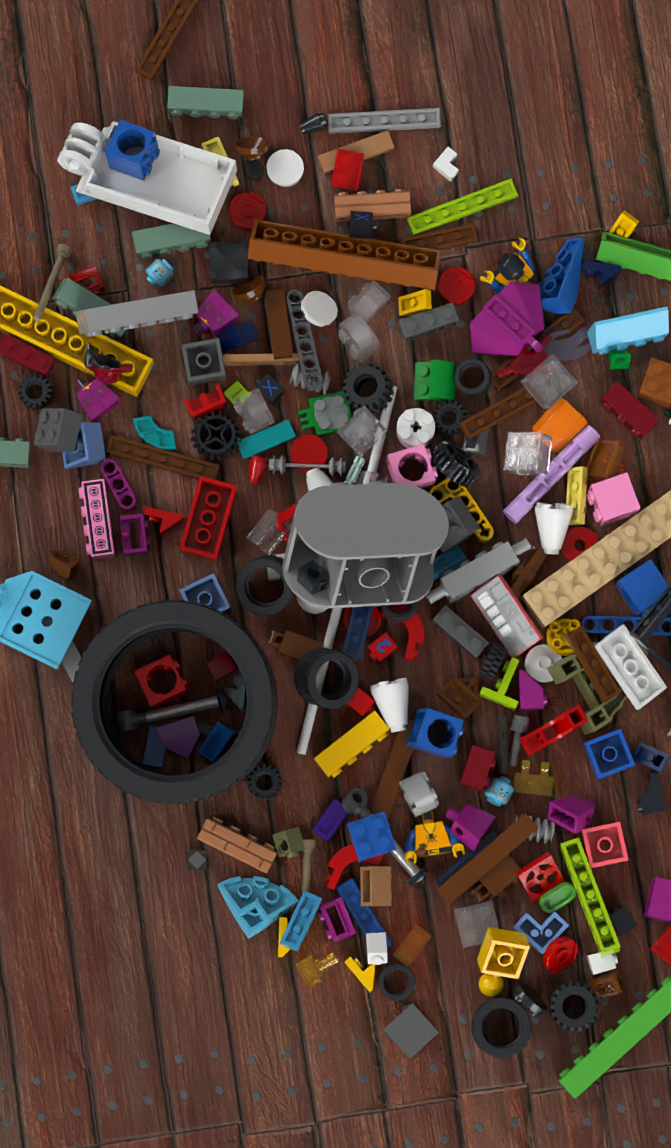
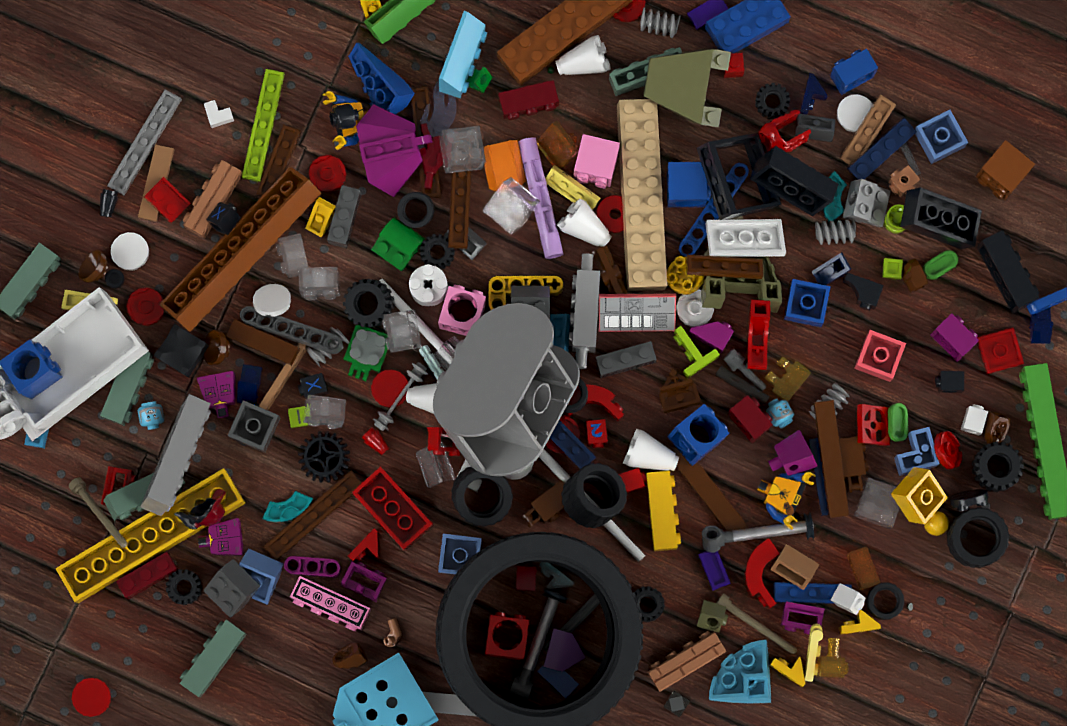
camera: 55 degrees left, 0 degrees up
(105, 588) = (394, 635): none -> nougat arm
(205, 403) = (290, 447): red window -> none
(216, 741) = (586, 623): blue tile -> none
(266, 439) = (354, 417): teal tile -> none
(300, 921) = (785, 648): dark azure plate -> none
(312, 577) = (499, 450): black brick -> none
(313, 947) = (813, 651): none -> light yellow plate
(371, 836) = (753, 543): blue brick -> none
(411, 1031) = (933, 615): dark grey tile -> none
(419, 794) = (740, 481): light grey brick -> none
(455, 464) = (481, 271): black gear -> none
(493, 661) = (668, 347): black tyre -> none
(571, 813) = (837, 364): magenta torso -> none
(590, 897) = (917, 394): lime brick -> none
(606, 271) = (397, 43): clear blue slope -> none

